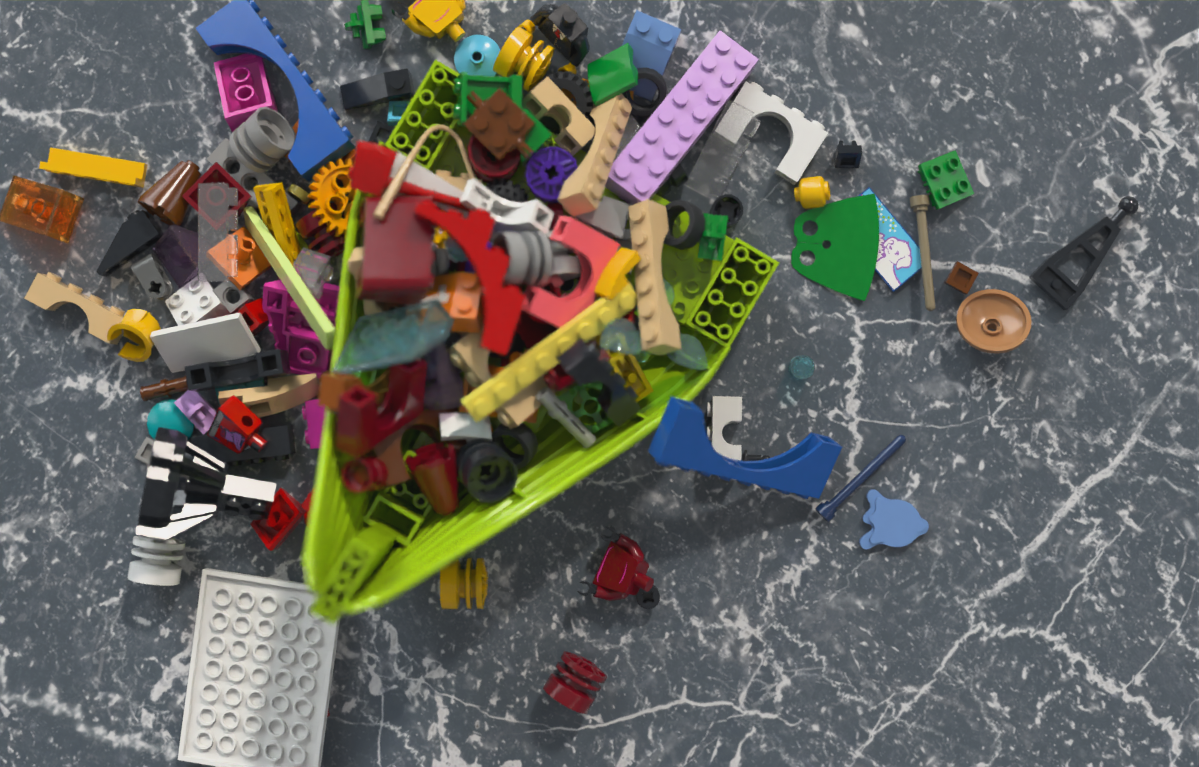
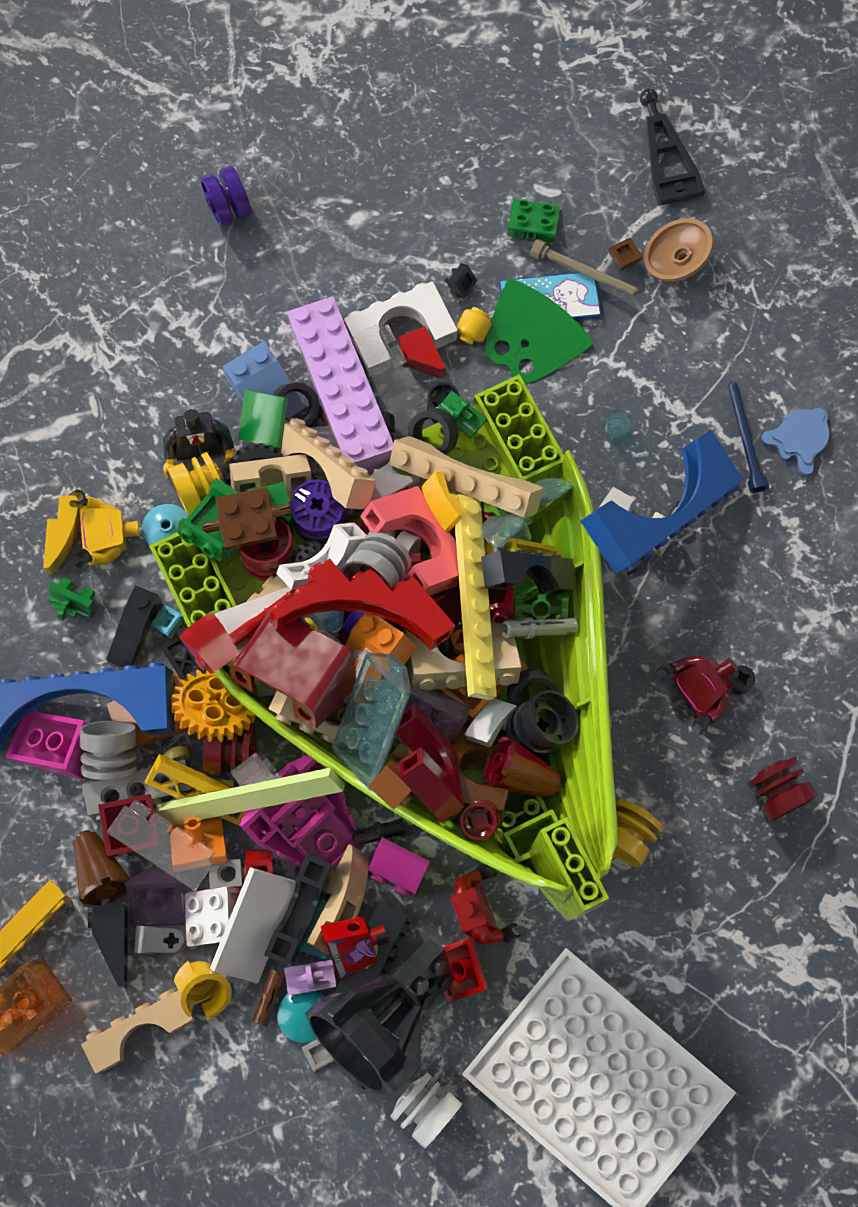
camera: 60 degrees left, 15 degrees down
(398, 179) = (240, 633): tan piece -> none
(759, 163) = (421, 353): none -> red slope

